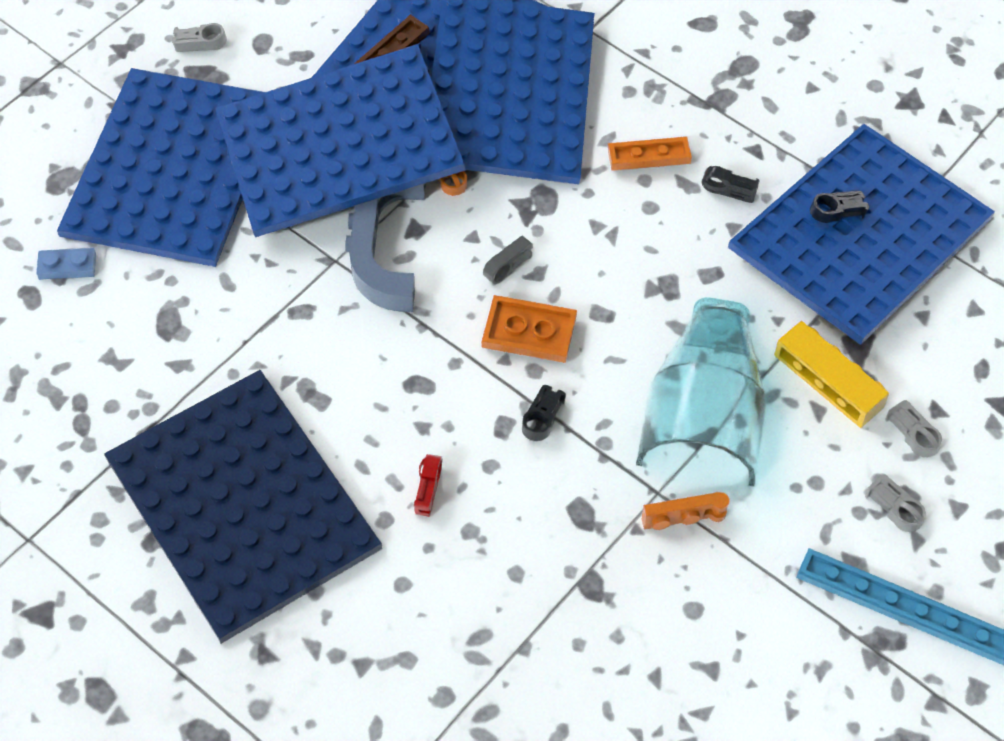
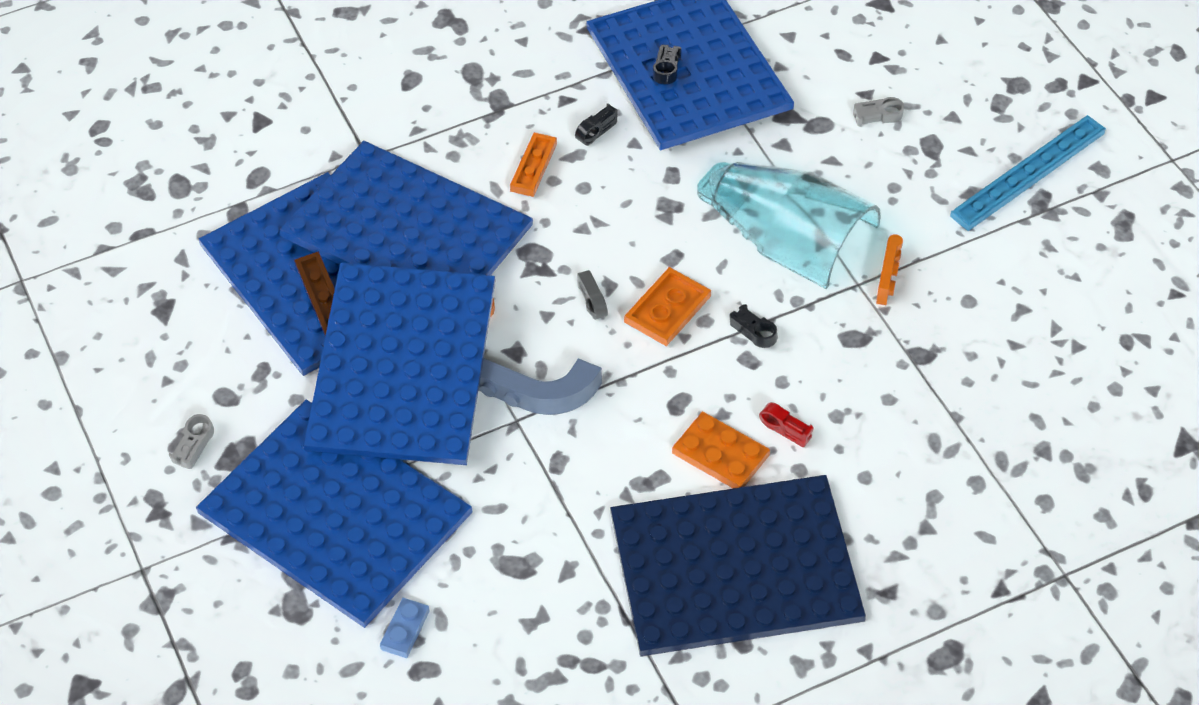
camera: 65 degrees left, 5 degrees down
(372, 440) = (720, 451): none -> orange plate
(831, 374) = (809, 136): yellow brick -> none
(894, 498) = (933, 147): light grey piece -> none

